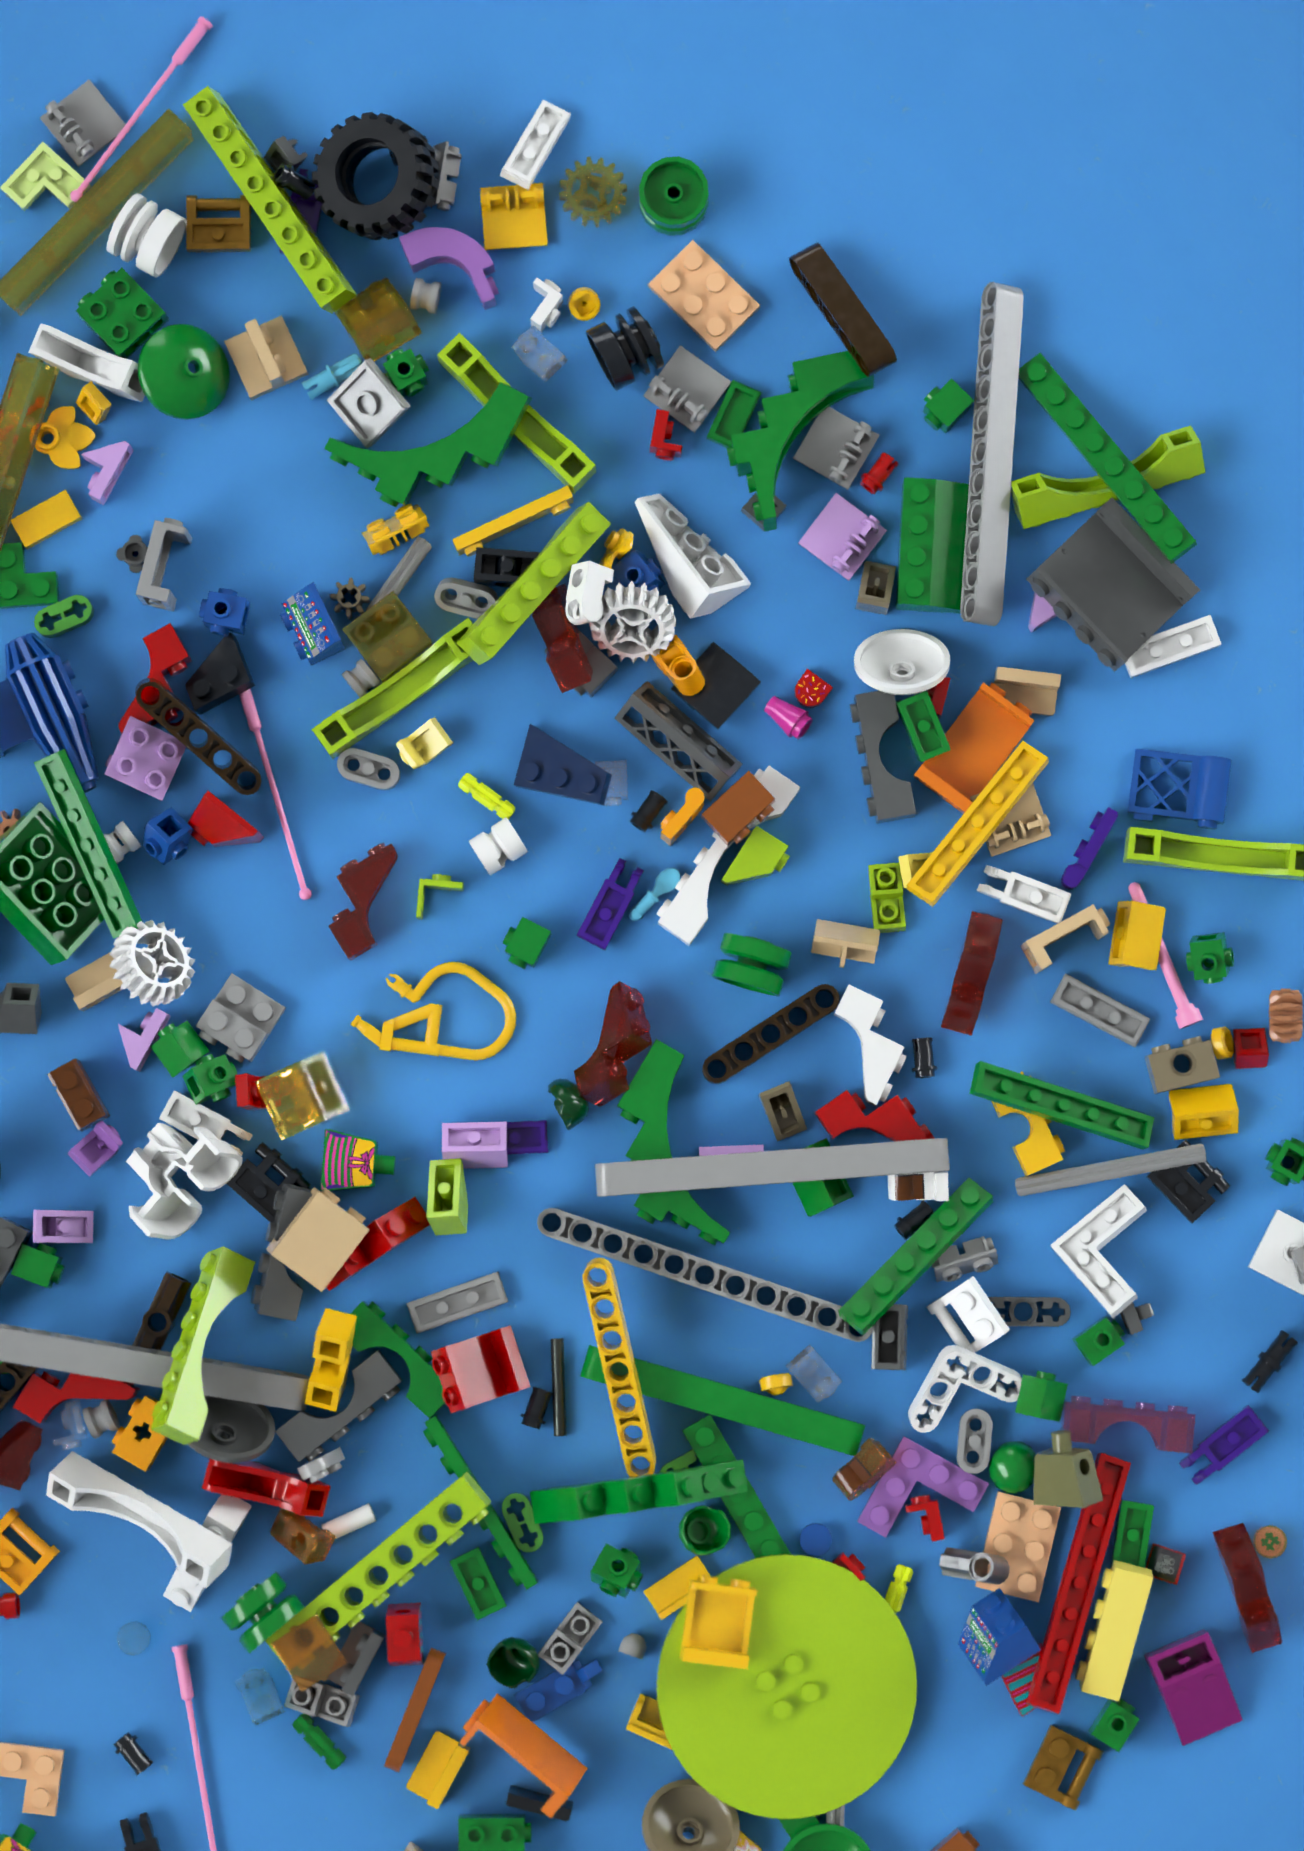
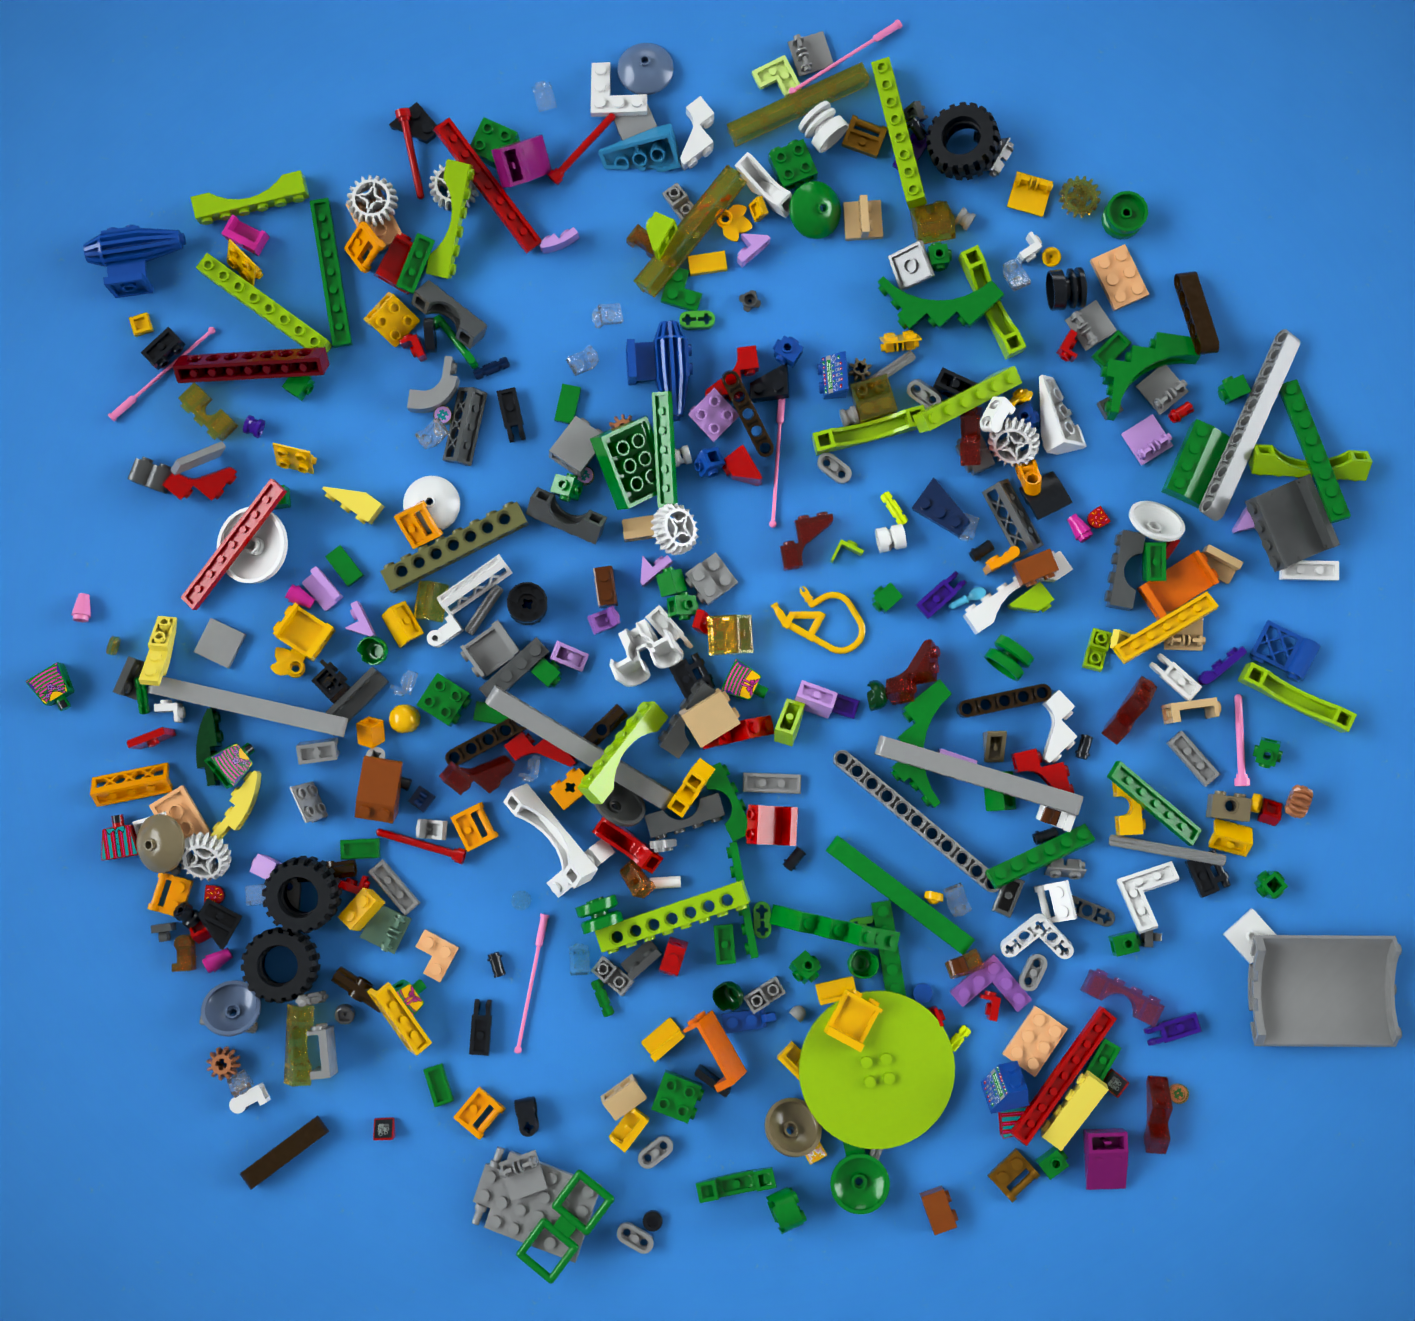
camera: 20 degrees right, 0 degrees up
(100, 1418) = (549, 771): light grey wheel -> none
(155, 562) = (751, 323): light grey panel -> none
(309, 1653) = (616, 946): clear orange piece -> none
(332, 375) = (896, 243): medium azure axle -> none
(414, 1710) = (662, 1001): dark orange beam -> none
(424, 744) = (870, 466): light yellow bracket -> none
(449, 246) = (992, 199): medium lavender arch -> none
(535, 144) = (1057, 158): white tile -> none
(554, 503) = (993, 360): yellow plate -> none
(558, 1387) = (810, 852): pearl dark grey bar -> none
(621, 1353) = (850, 845): yellow beam -> none
(845, 941) = (1065, 665): tan panel -> none
(875, 588) = (1155, 476): dark tan slope -> none
(974, 1565) = (1007, 1042): flat silver piece -> none
(1012, 1467) = (1049, 995): green hair -> none
(1041, 1396) = (1081, 962): green brick -> none
(1065, 1475) = (1079, 1012): olive torso -> none
(1137, 935) = (1230, 724): yellow panel -> none
(1269, 1361) = (1216, 992): black pin -> none

